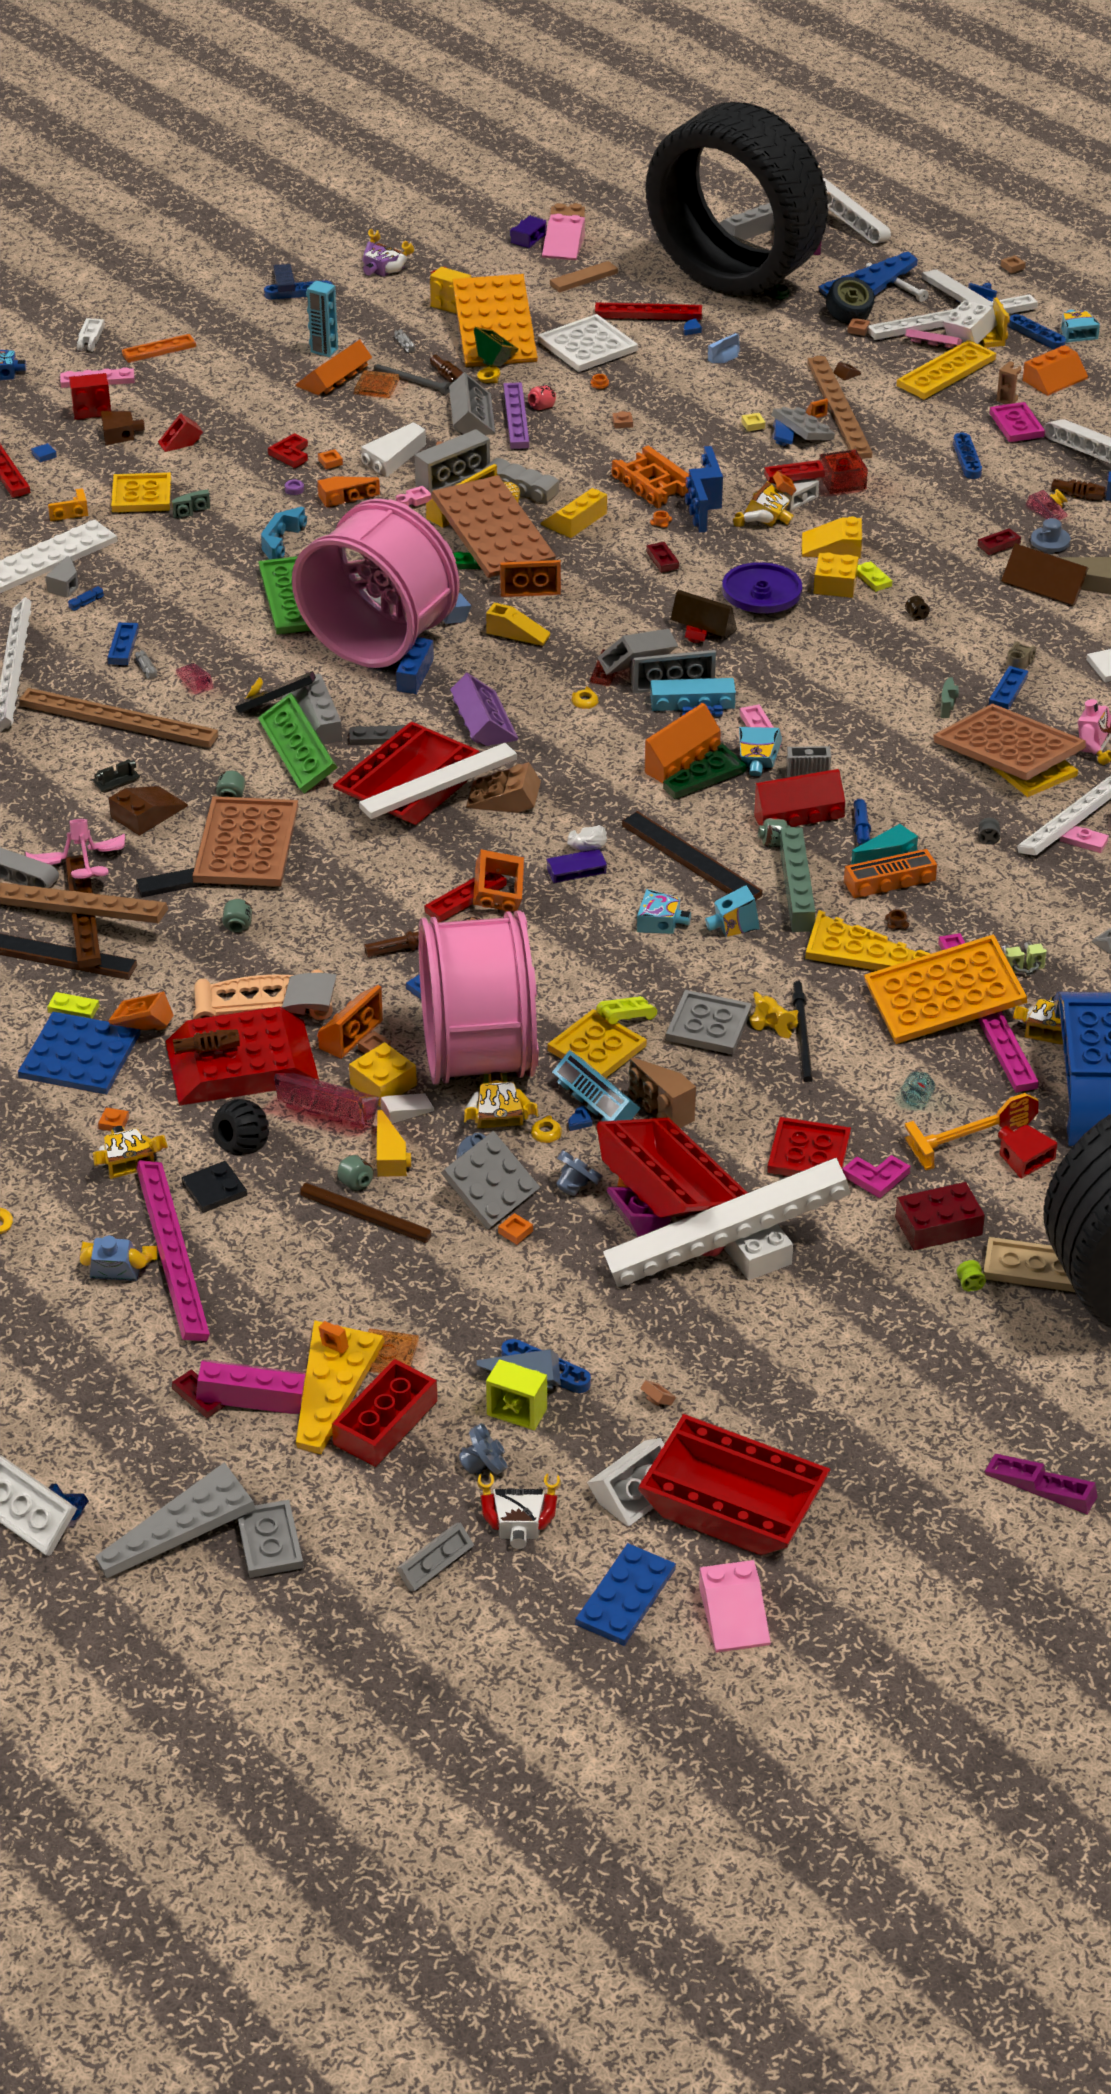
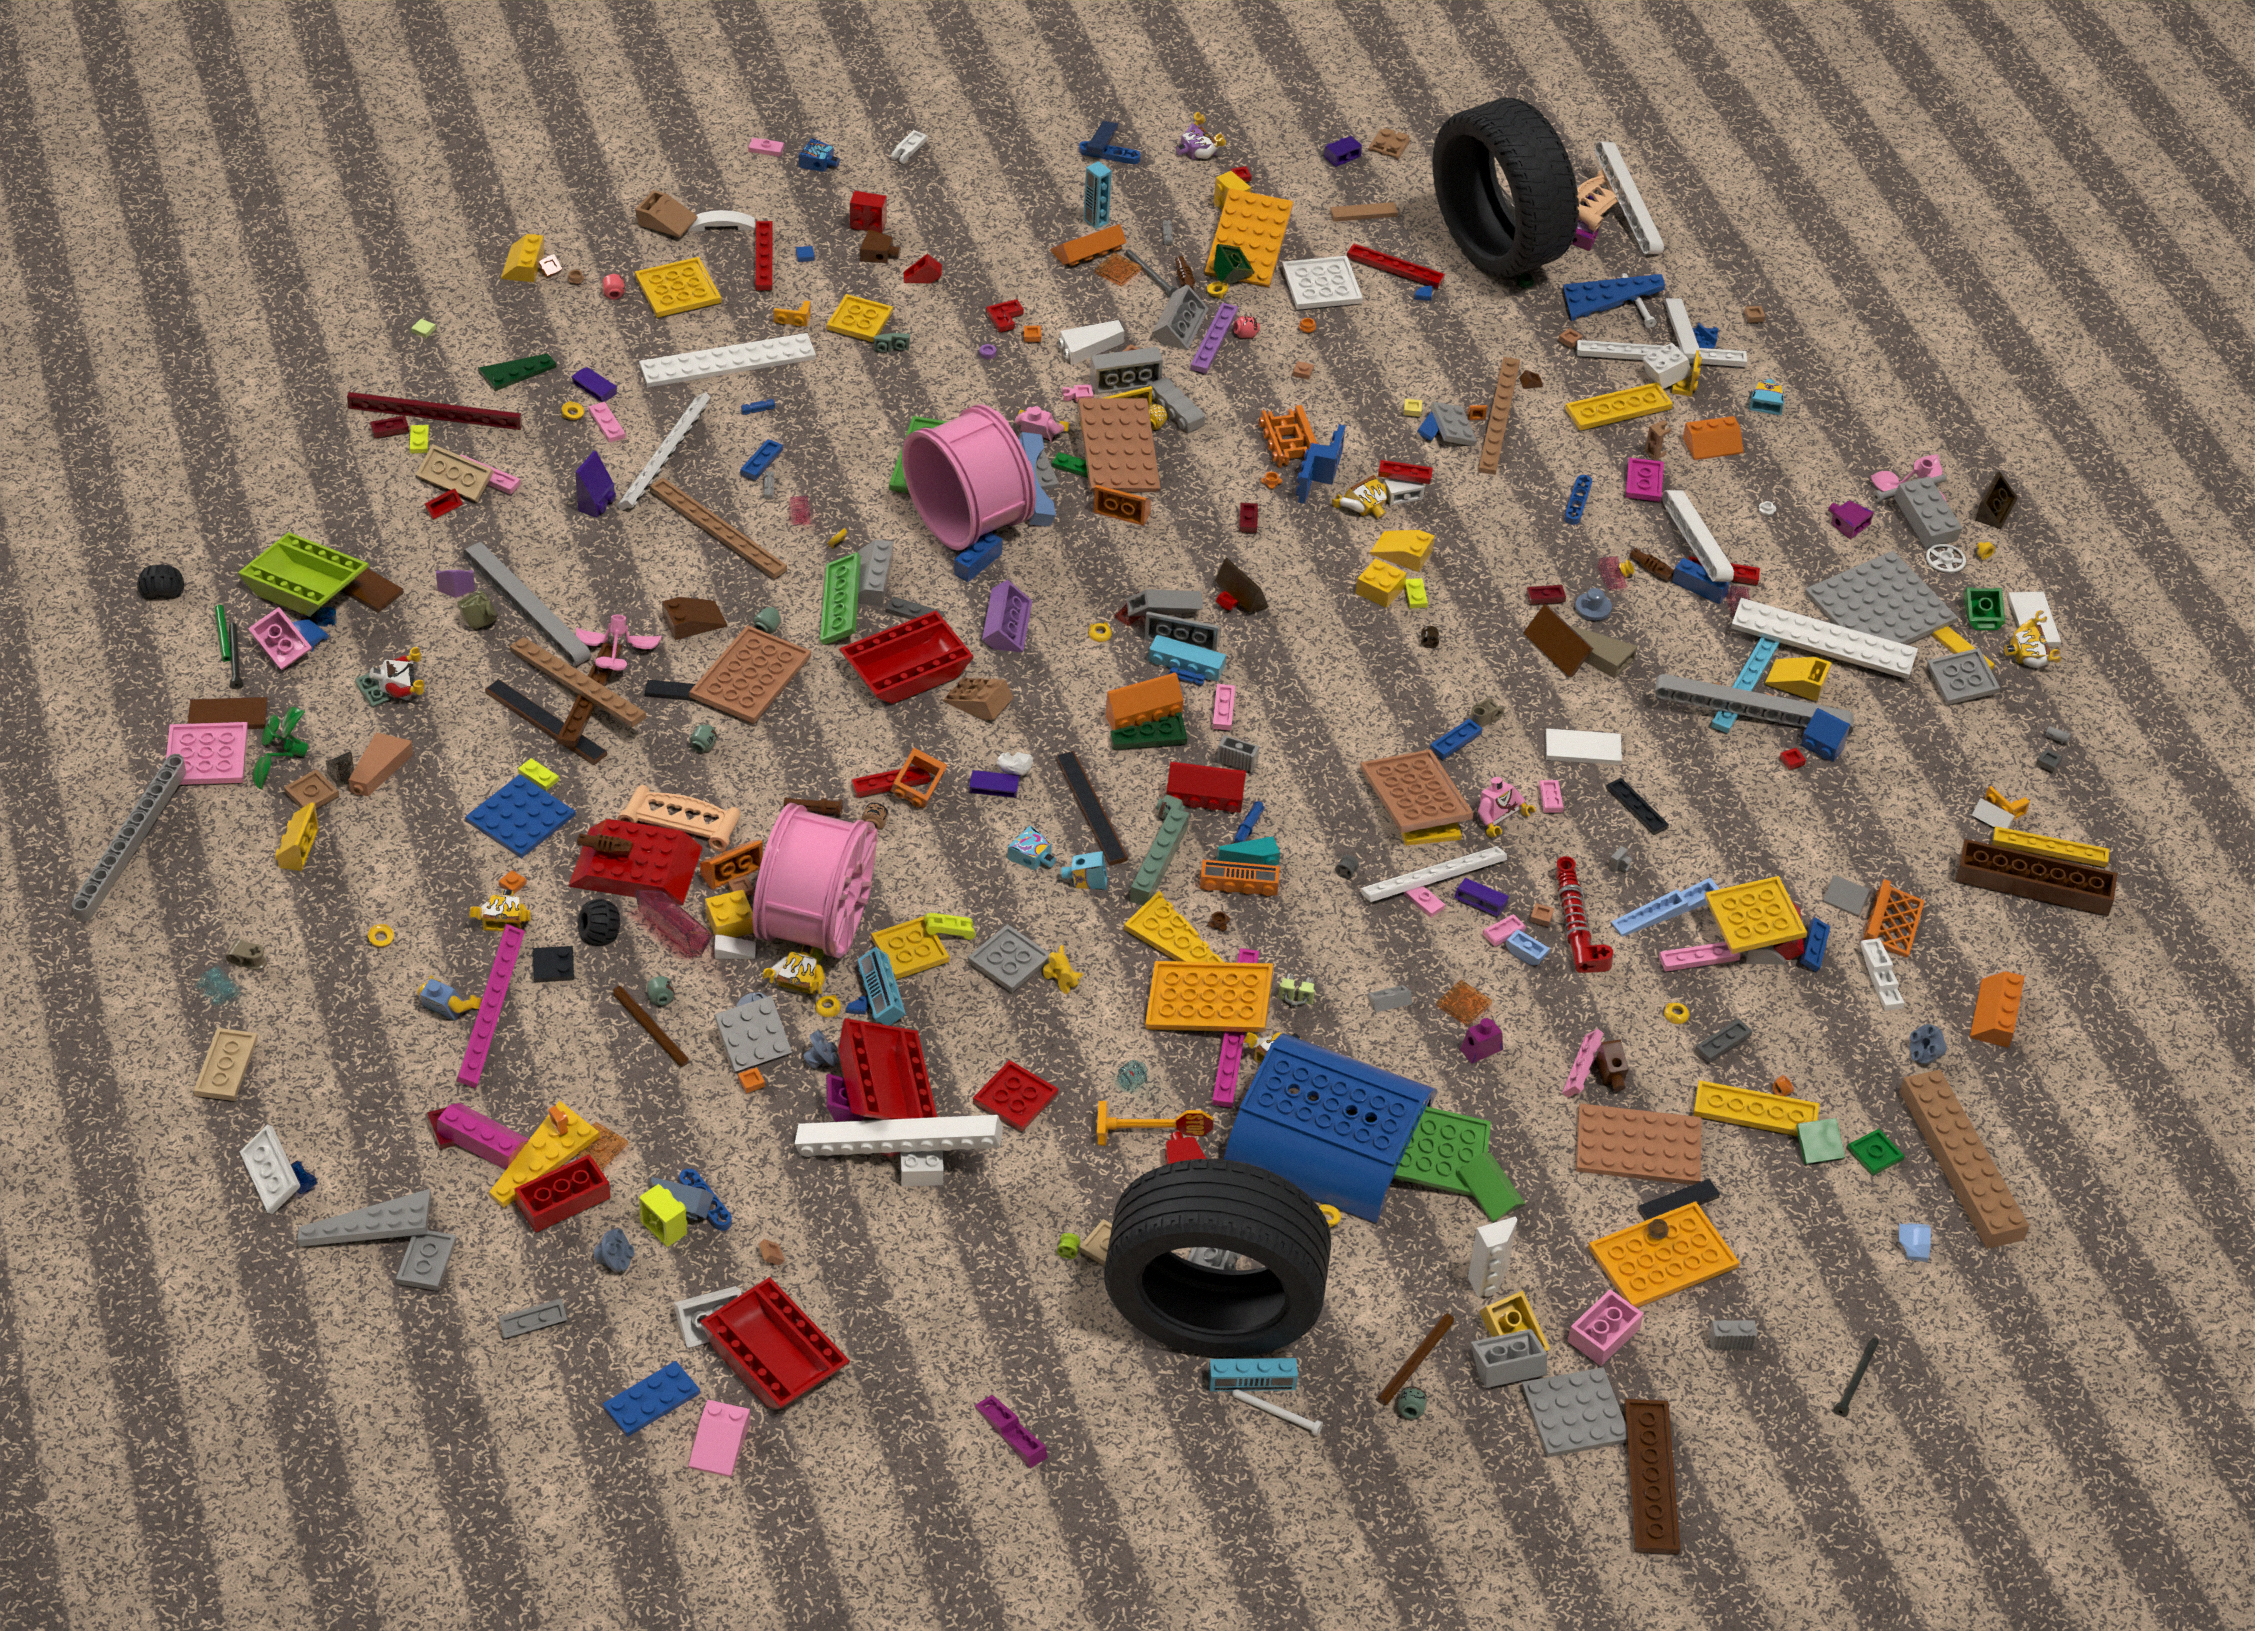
camera: 20 degrees right, 5 degrees up
(63, 578) = (749, 382): light grey slope -> none
(108, 778) = (678, 582): pearl dark grey hinge -> none
(115, 376) = (892, 192): bright pink plate -> none
(143, 1012) = (581, 800): orange slope -> none
(158, 348) = (964, 177): orange tile -> none
(275, 692) = (848, 546): black tile -> none
(288, 520) = (961, 383): dark azure slope -> none
(309, 992) = (713, 826): light grey slope -> none
(342, 490) = (1027, 368): orange slope -> none
(391, 1149) = (695, 984): yellow slope -> none
(437, 780) = (922, 672): white tile -> none
(512, 624) = (1081, 544): yellow slope -> none
(518, 1512) = (611, 1306): torso -> none
(564, 237) = (1369, 166): bright pink slope -> none
(578, 513) = (1204, 453): yellow slope -> none
(662, 1092) = (928, 1010): medium nougat slope -> none
(724, 349) = (1435, 326): light blue slope -> none
(759, 747) = (1205, 727): medium azure torso -> none
(762, 587) = (1308, 575): dark purple dish -> none
(784, 483) = (1388, 481): orange plate -> none
(799, 1003) = (1092, 965): black bar -> none
(844, 471) = (1453, 483): clear red brick -> none
(850, 299) = (1575, 309): black wheel -> none
(876, 1179) = (1052, 1139): dark pink plate -> none
(933, 339) = (1627, 371): bright pink plate -> none
(939, 1216) = (1076, 1187): dark red brick -> none
(949, 693) = (1397, 730): sand green slope -> none
(1036, 331) = (1737, 406): blue beam -> none

